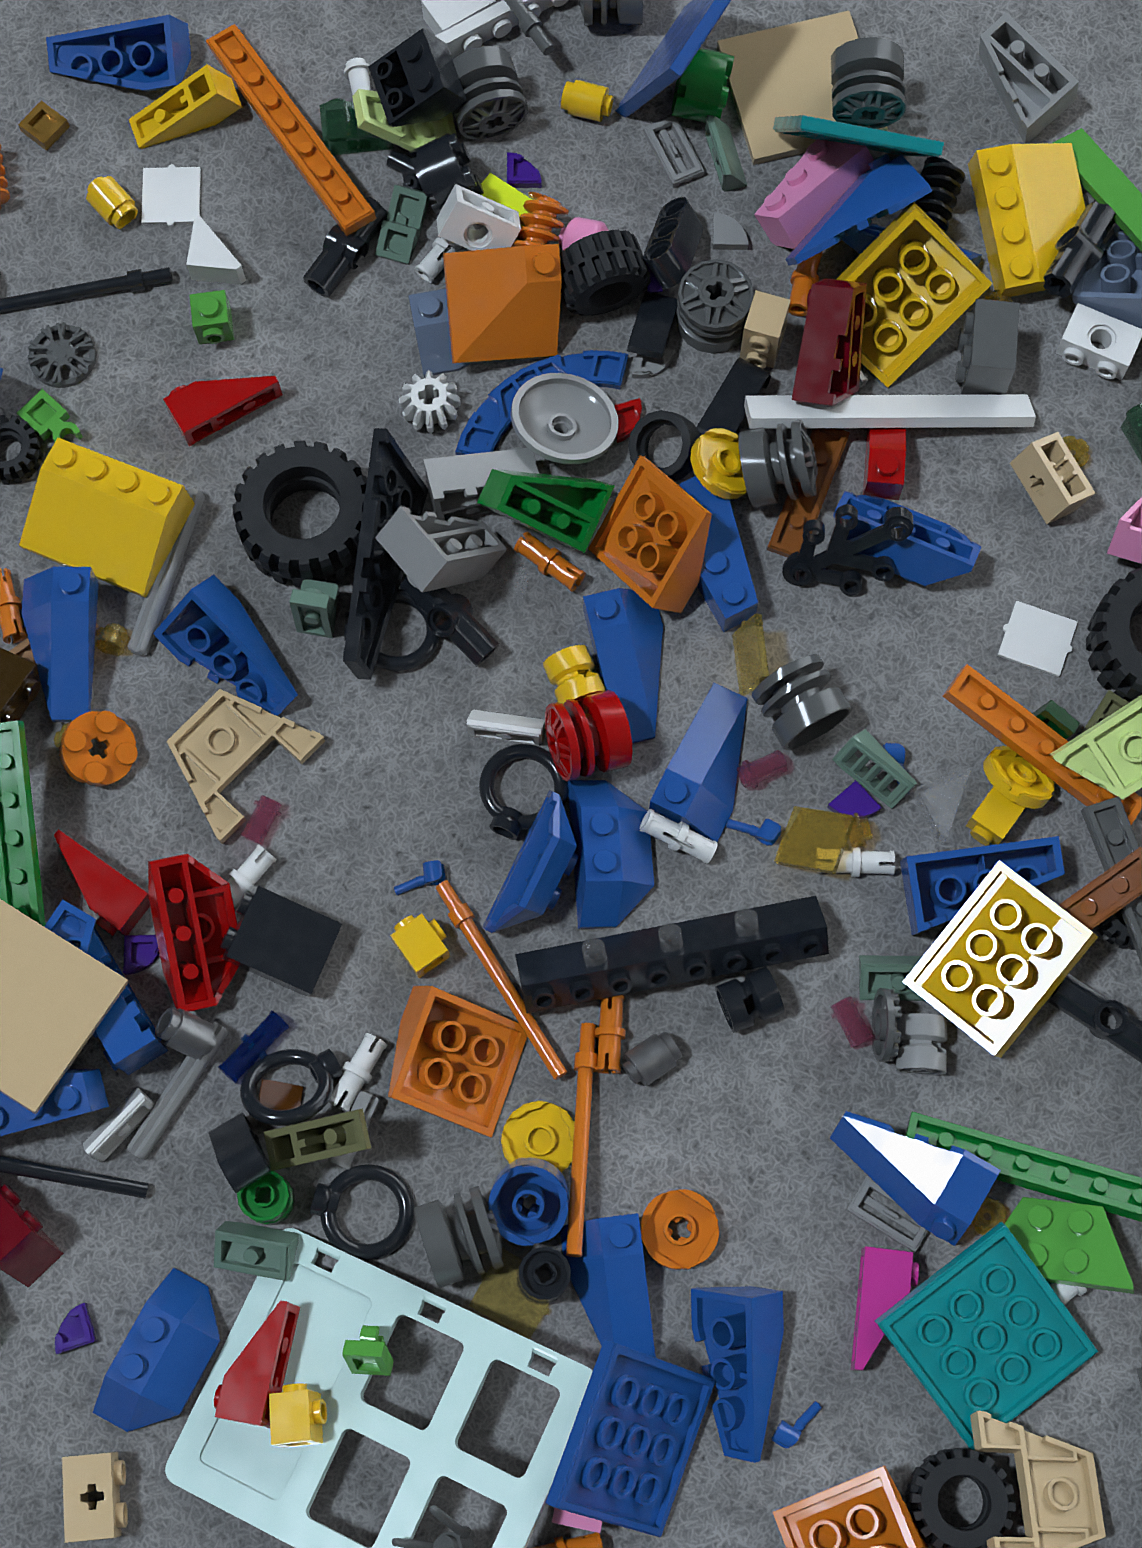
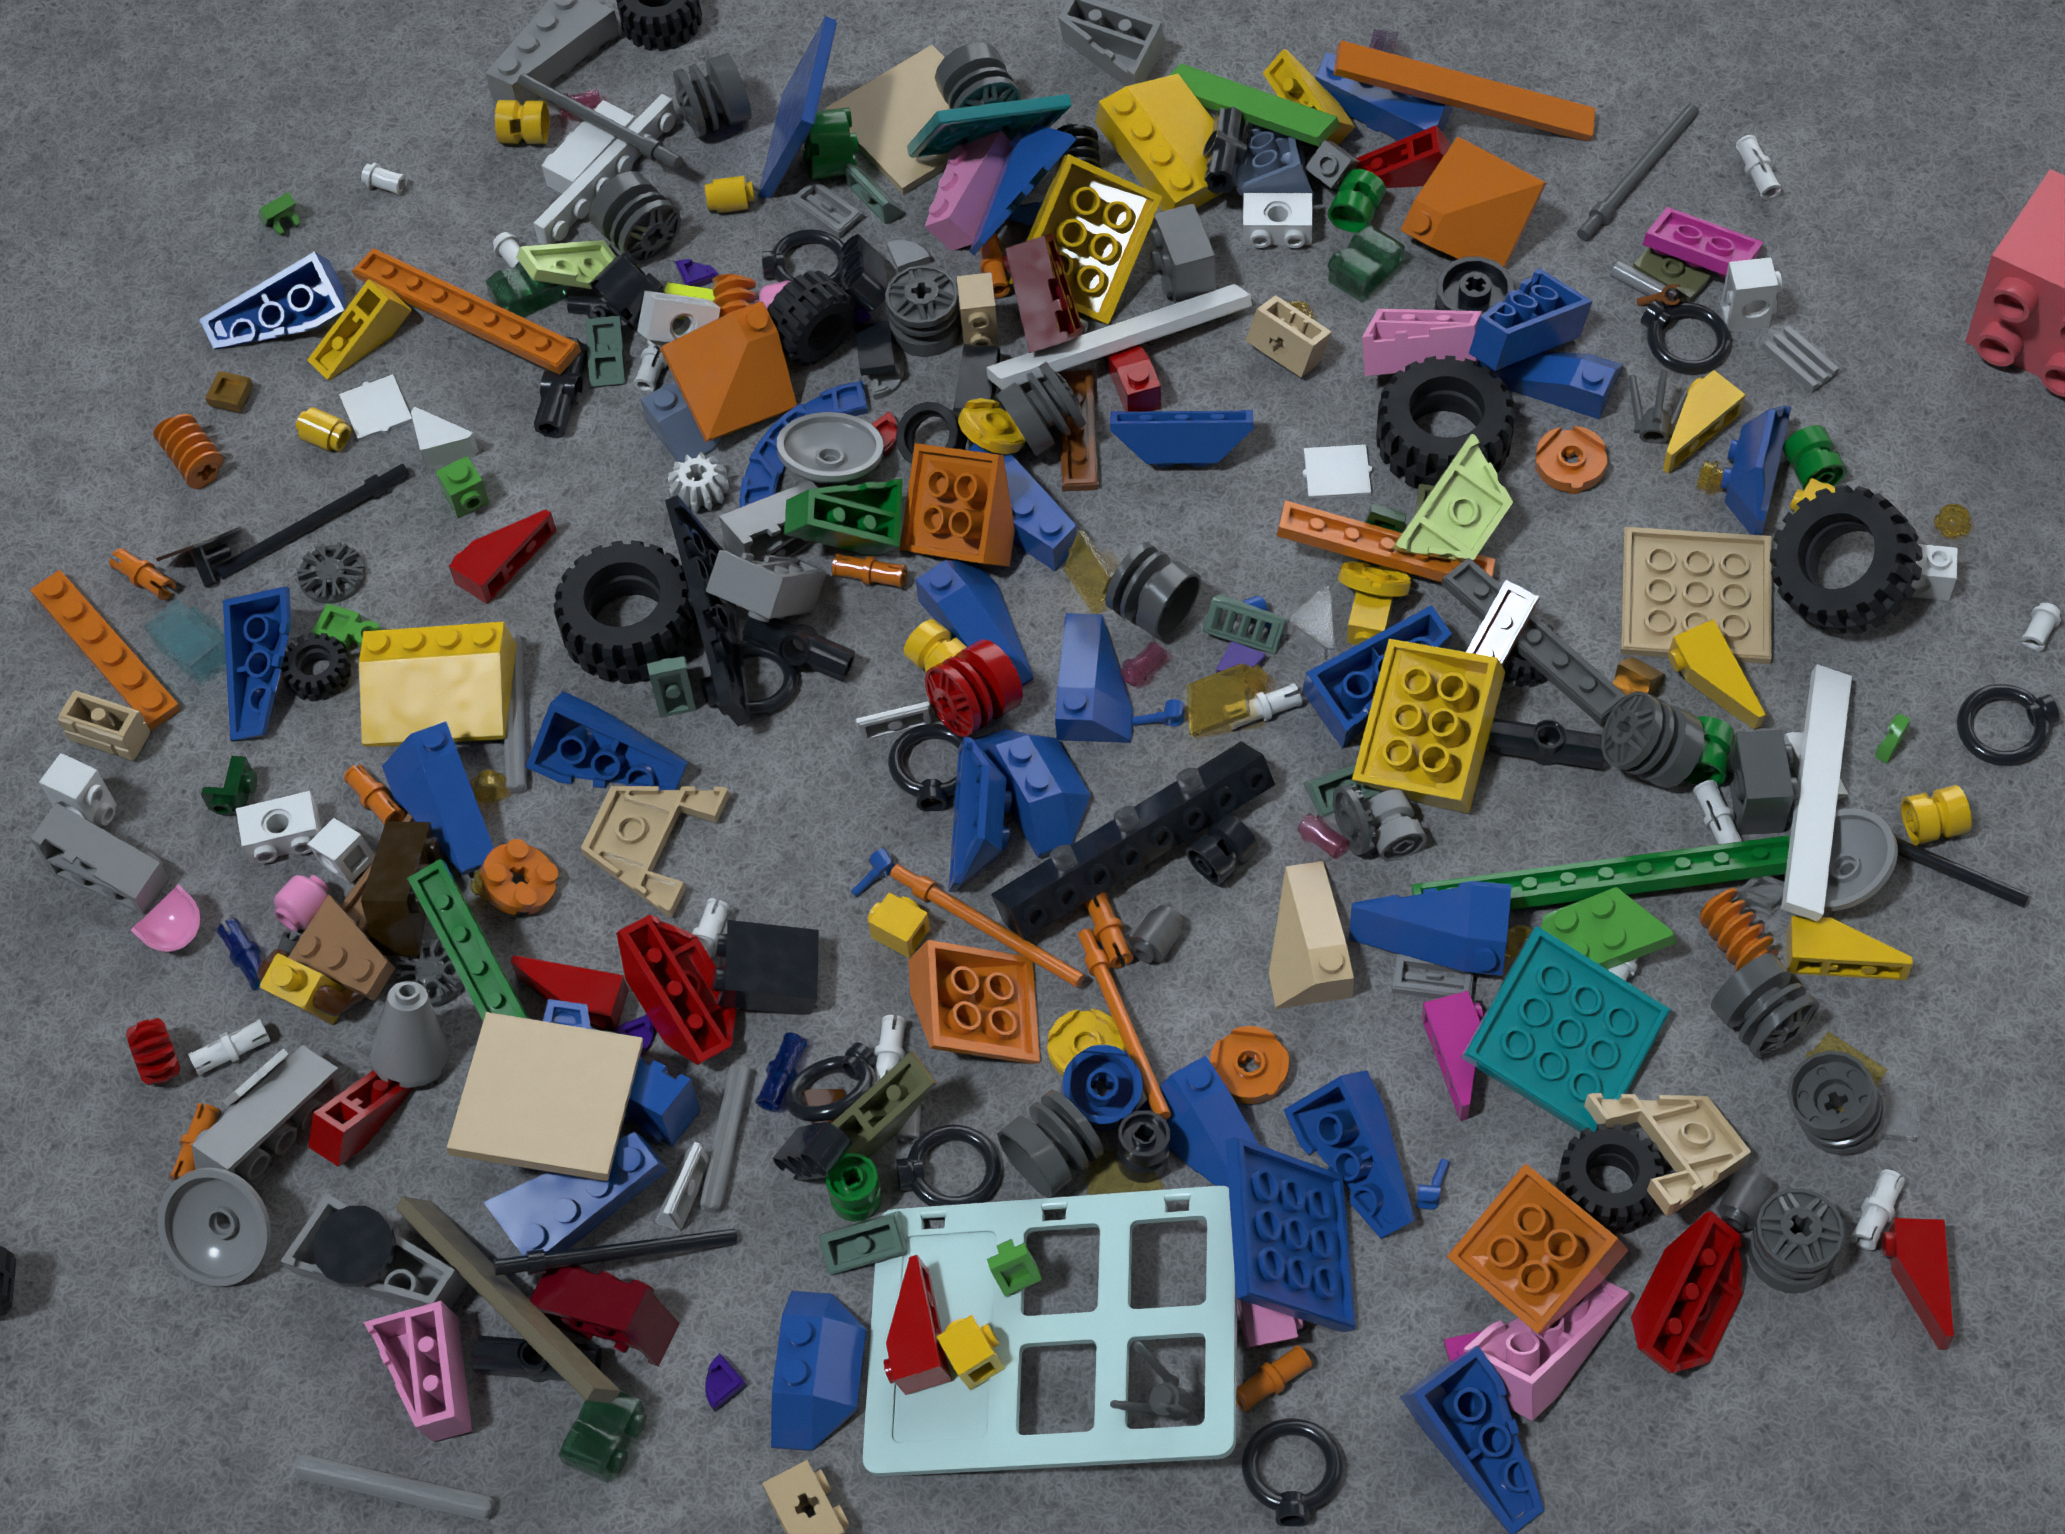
camera: 20 degrees left, 15 degrees down
(186, 1033) = (715, 1075): flat silver brick -> none
(261, 820) = (700, 880): clear pink pin -> none
(417, 81) = (571, 222): black slope -> none
(598, 192) = (773, 260): none -> black piece
(678, 836) = (1069, 741): white pin -> none
(789, 1128) = (1309, 945): none -> tan wedge
(803, 568) = (1133, 457): black plant -> none

